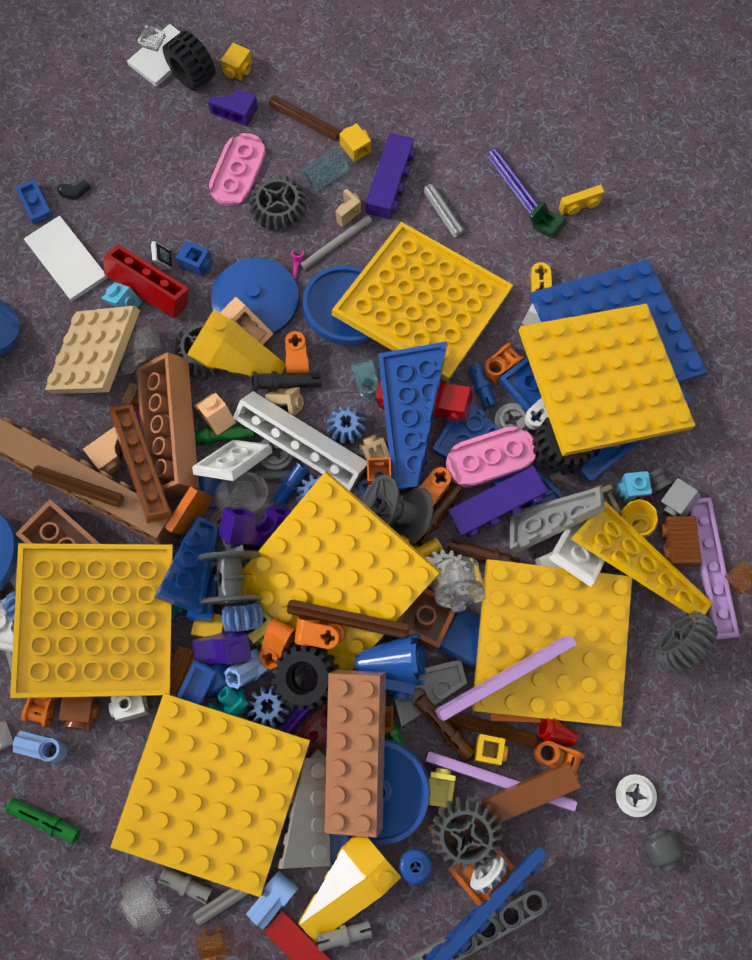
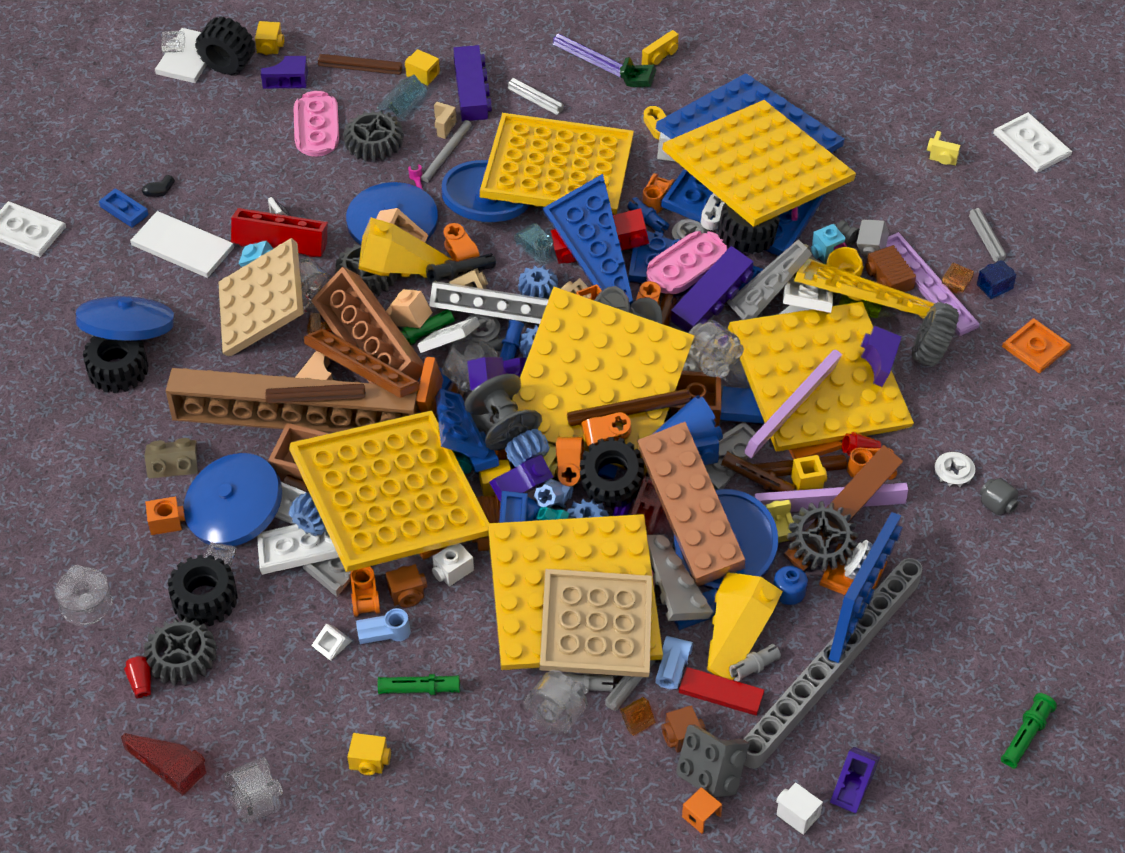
camera: 25 degrees left, 20 degrees down
(189, 254) = (316, 202): blue brick -> none
(207, 848) = (596, 623): none -> tan plate
(621, 648) = (880, 351): none -> dark purple arch

